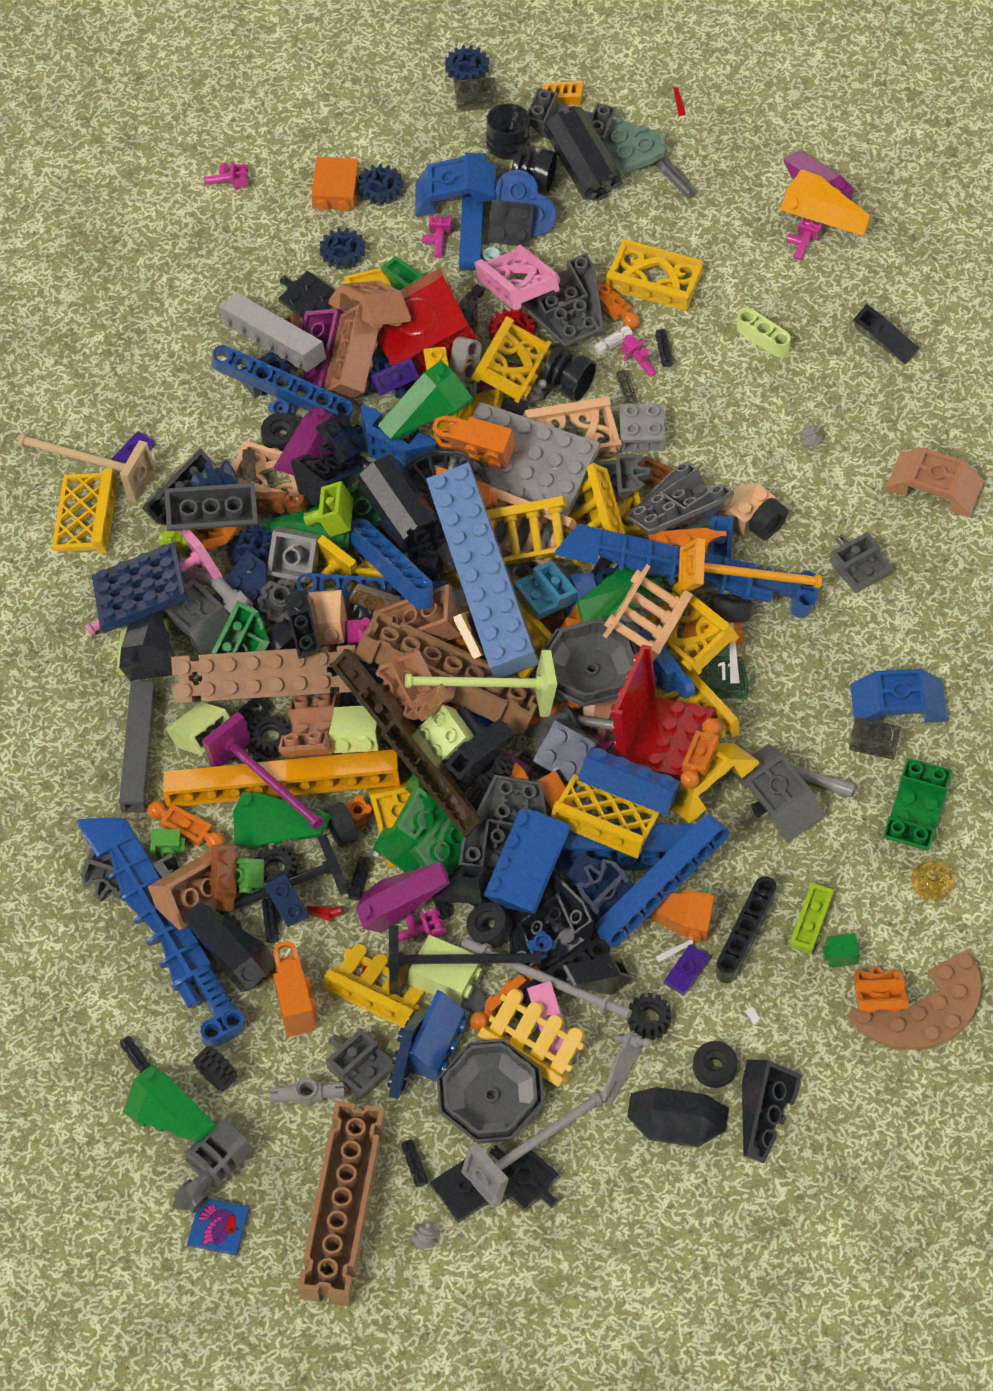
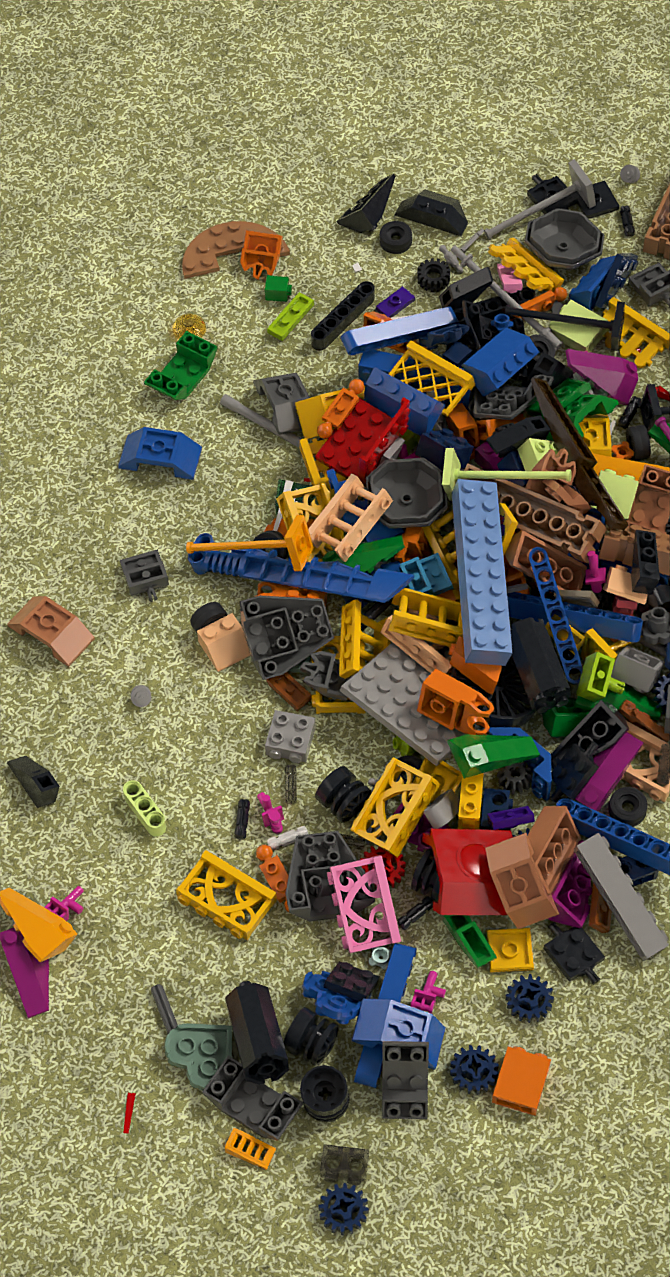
camera: 165 degrees left, 0 degrees up
(238, 175) = (628, 1118): dark pink arm -> none
(439, 147) = (405, 1080): none -> dark grey slope
(590, 410) = (372, 746): light nougat fence -> none
(875, 738) = (192, 424): clear smoke brick -> none

